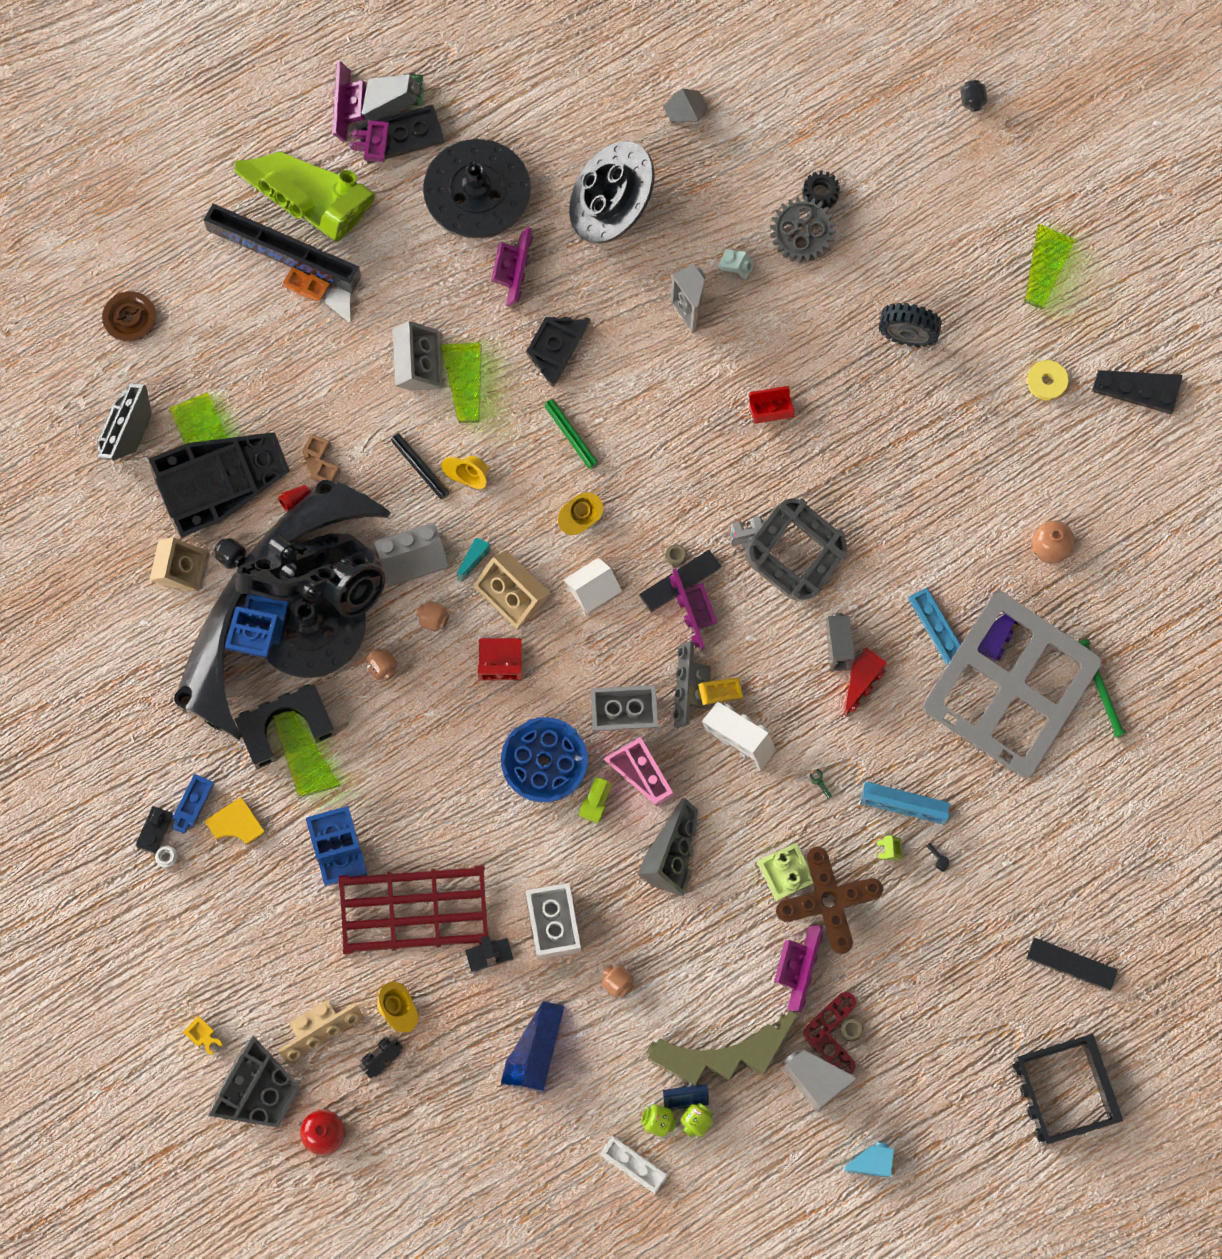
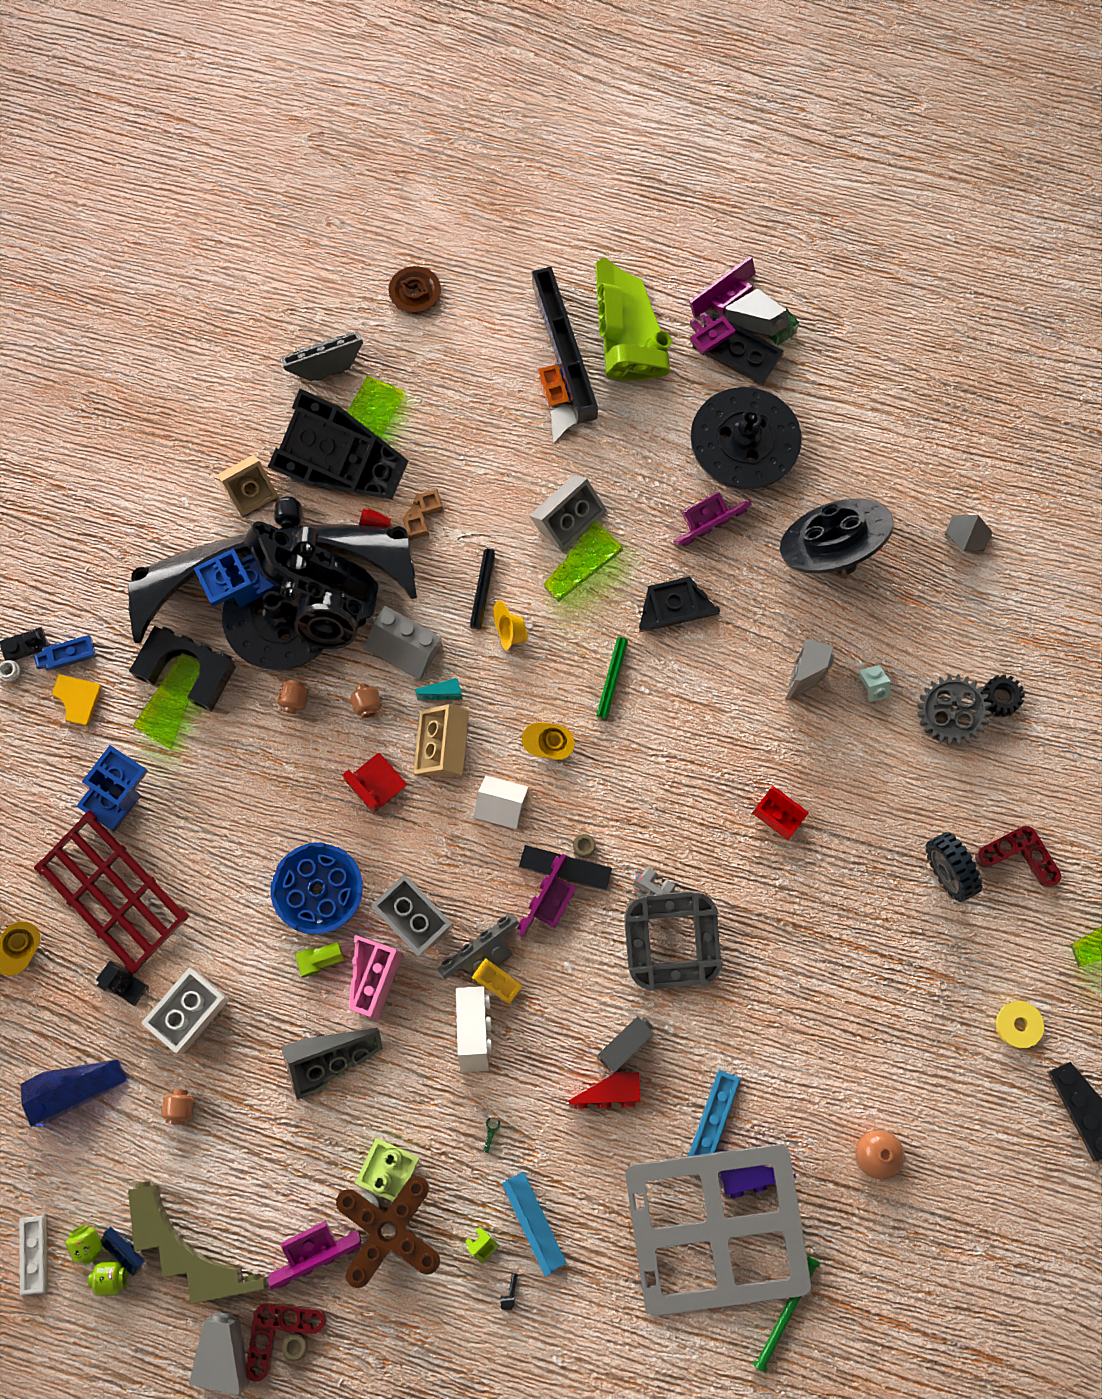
camera: 50 degrees right, 0 degrees up
(937, 270) = (1026, 848): none -> dark red beam

